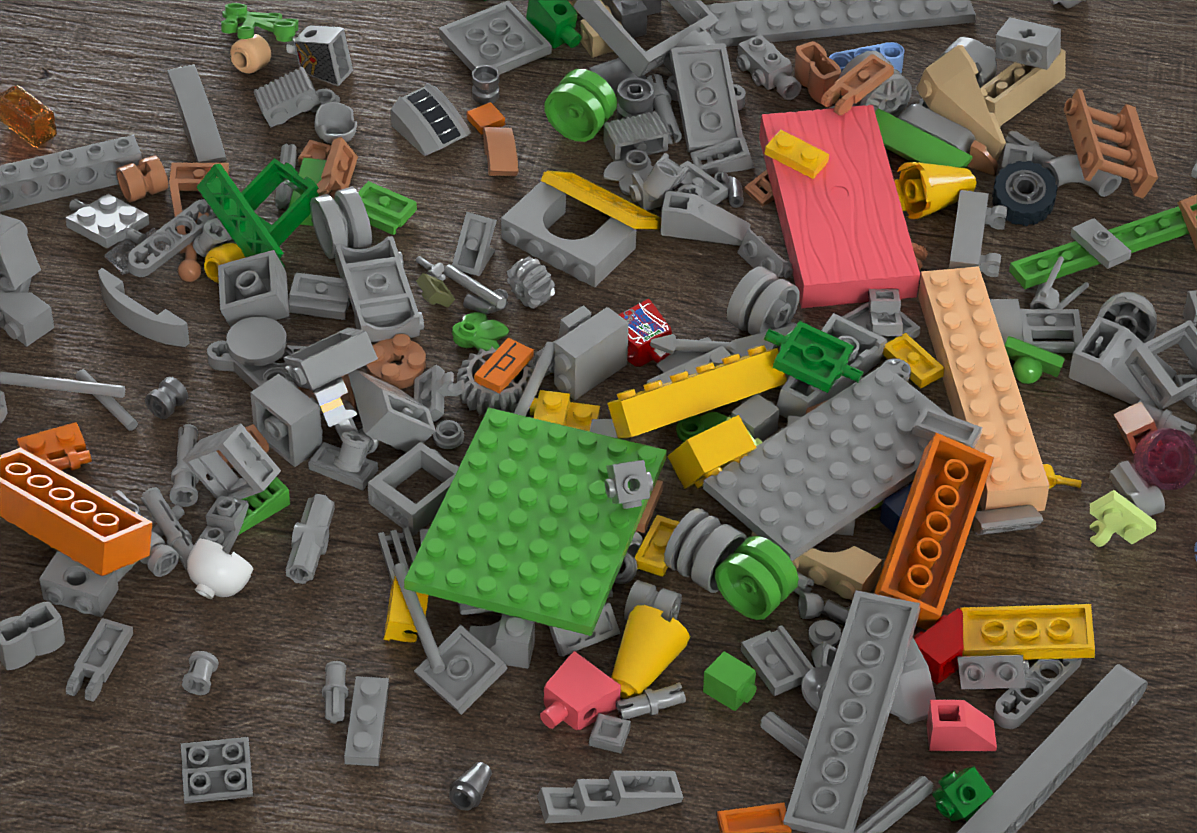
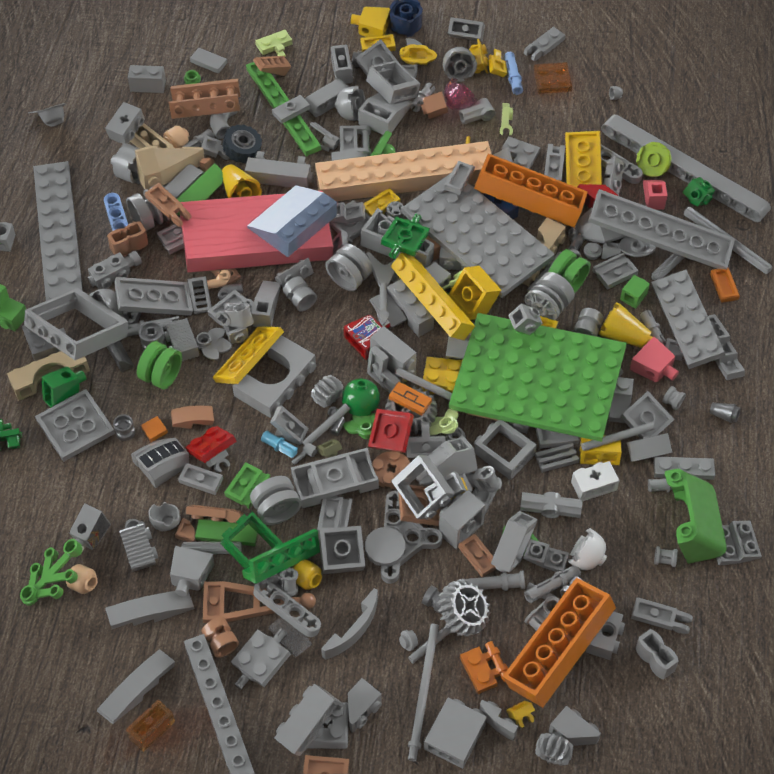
camera: 90 degrees left, 10 degrees up
(86, 105) = (135, 686): none -> light grey slope
(107, 367) = (408, 640): none -> light grey plate
(131, 424) = (464, 607): none -> light grey gear
(248, 147) = (190, 569): none -> light grey torso
(255, 696) = (704, 535): none -> bright green windscreen
(348, 594) = (595, 481): none -> white brick
(395, 161) = (200, 479): none -> light grey plate
(403, 670) = (649, 447): none -> light grey slope
(425, 177) = (217, 460): none -> light grey tile
(446, 241) = (279, 444): none -> medium azure axle
(447, 163) = (210, 444): none -> red plate
(448, 344) = (391, 430): none -> red plate
(459, 413) = (445, 424): none -> yellowish green plate
(501, 714) = (674, 398): none -> light grey wheel
(522, 320) = (361, 397): none -> green cylinder
(664, 744) = (688, 319): none -> light grey plate
(717, 259) = (299, 293): none -> light grey wheel
(746, 172) = (220, 281): none -> light nougat arm
(796, 154) = (226, 241): yellow plate -> none
(823, 308) = (340, 239): none -> flat silver tile
(845, 231) = (294, 219): none -> sand blue slope
(1020, 591) = (554, 161): none -> light grey plate
(1030, 120) = (177, 136): none -> light nougat head
(1037, 733) = (654, 159): none -> lime tile
(1045, 559) = (524, 153): none -> light grey plate
(1132, 279) = (324, 98): none -> light grey beam
(1154, 86) = (146, 79): none -> light grey brick
(1169, 141) = (192, 77): none -> bright green plate

